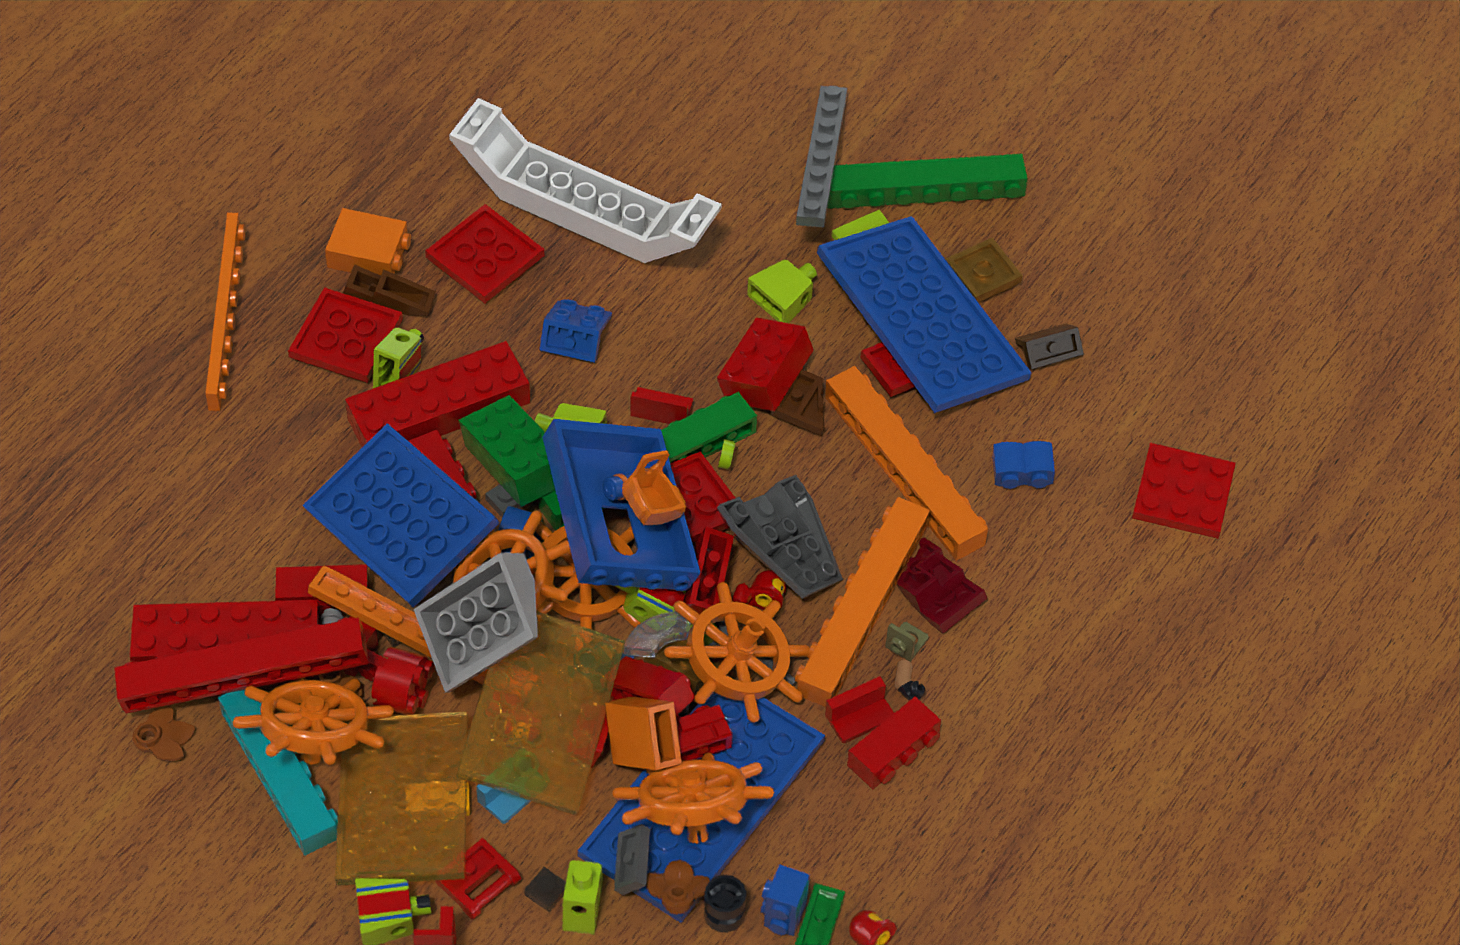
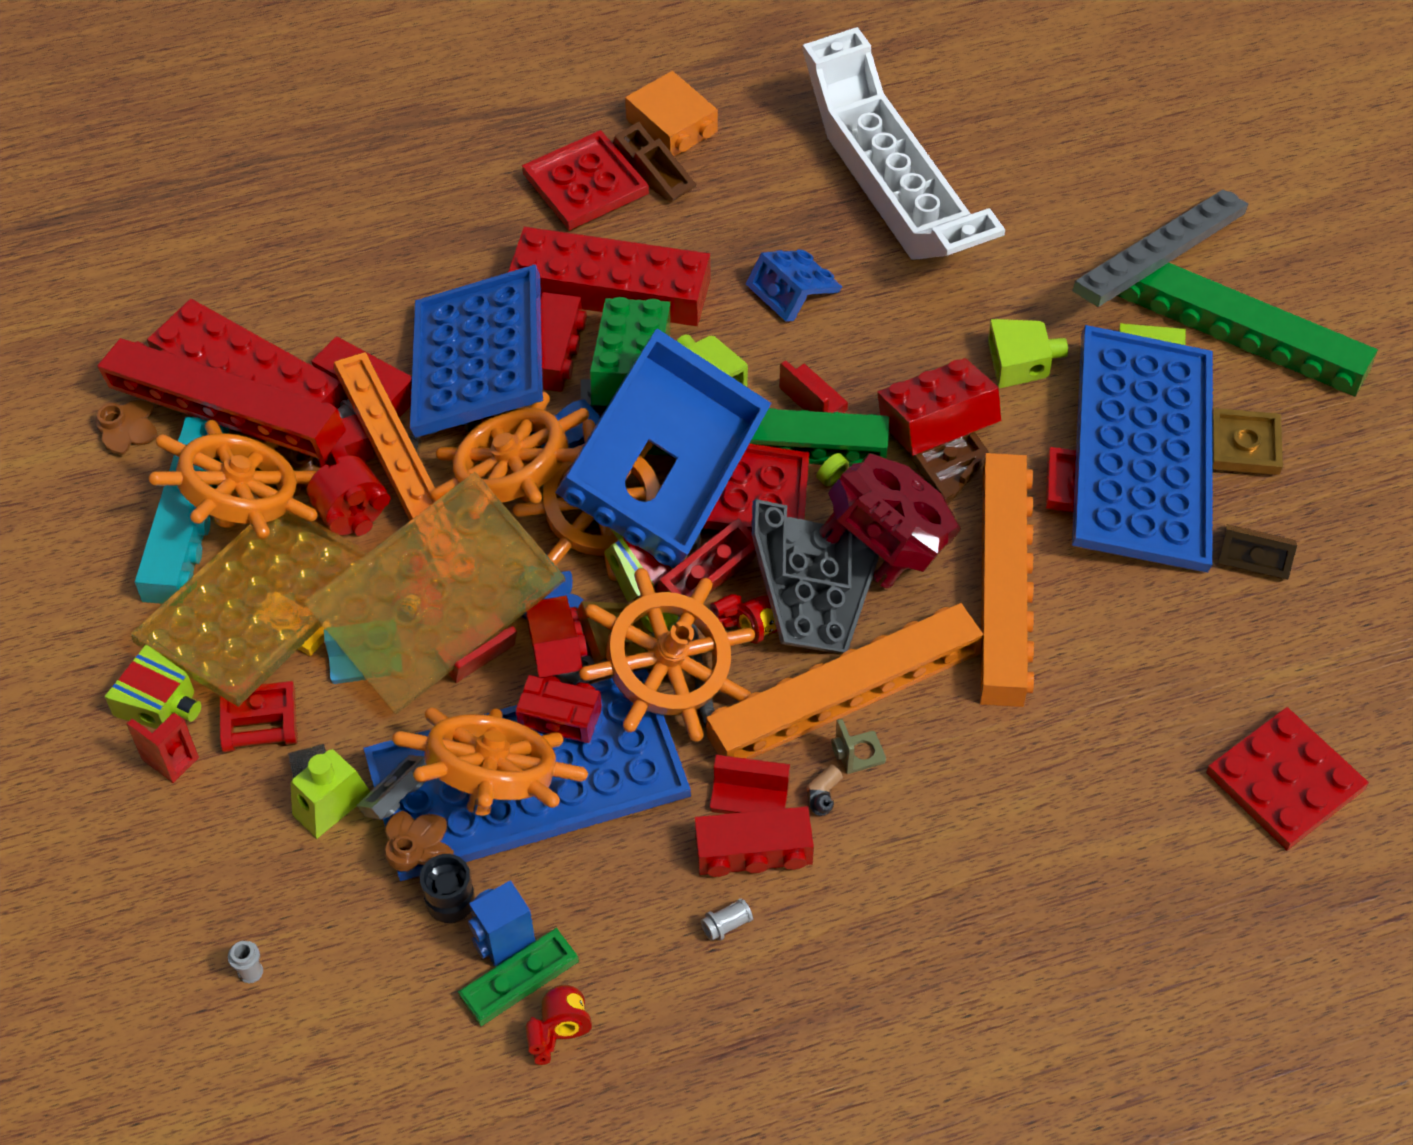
camera: 40 degrees right, 0 degrees up
(224, 318) = (499, 107): orange plate -> none
(397, 356) = (607, 214): lime torso -> none
(480, 619) = (437, 467): light grey slope -> none
(485, 253) = (770, 175): red plate -> none
(643, 733) = (503, 672): orange brick -> none
(647, 491) = (698, 452): orange piece -> none
(655, 633) = (600, 589): clear tile -> none
(804, 460) = (892, 515): none -> dark red brick
(916, 812) = (726, 920): none -> light grey pin
(938, 587) = (934, 718): dark red slope -> none
(1023, 464) = (1127, 649): blue brick -> none

